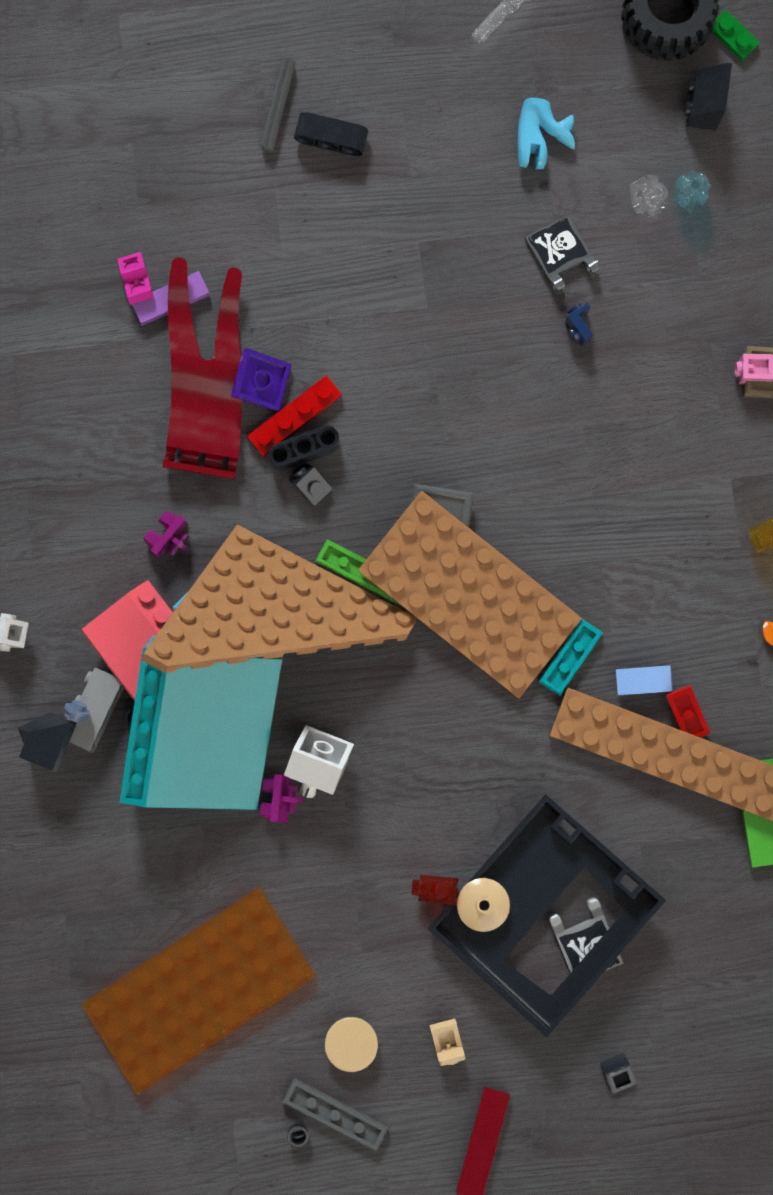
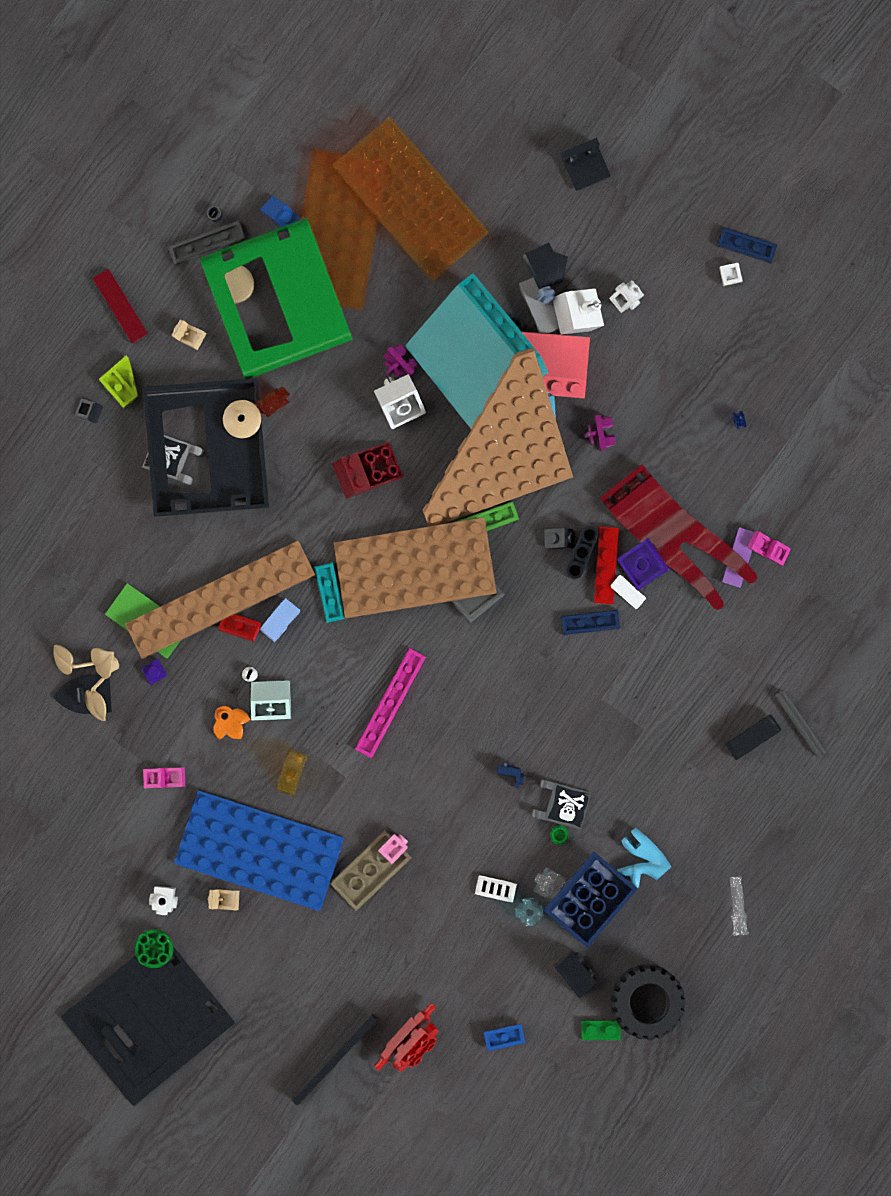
camera: 140 degrees right, 5 degrees up
(34, 415) = (739, 420): none -> clear blue bush
(64, 665) = (578, 311): none -> white brick
(100, 944) = (410, 199): none -> clear orange plate
(236, 1064) = (279, 213): none -> blue slope
(293, 973) = (302, 291): none -> green door
(301, 372) = (628, 592): none -> white sticker
(363, 382) = (590, 622): none -> dark blue tile
(416, 731) = (367, 470): none -> dark red slope
(559, 1066) = (121, 382): none -> lime wing
(592, 230) = (559, 835): none -> green plate
(620, 500) = (390, 703): none -> dark pink tile
(627, 139) = (590, 899): none -> dark blue slope
(686, 239) = (497, 881): none -> white slope
(721, 656) = (253, 676): none -> white hinge
(731, 615) = (270, 700): none -> light aqua slope

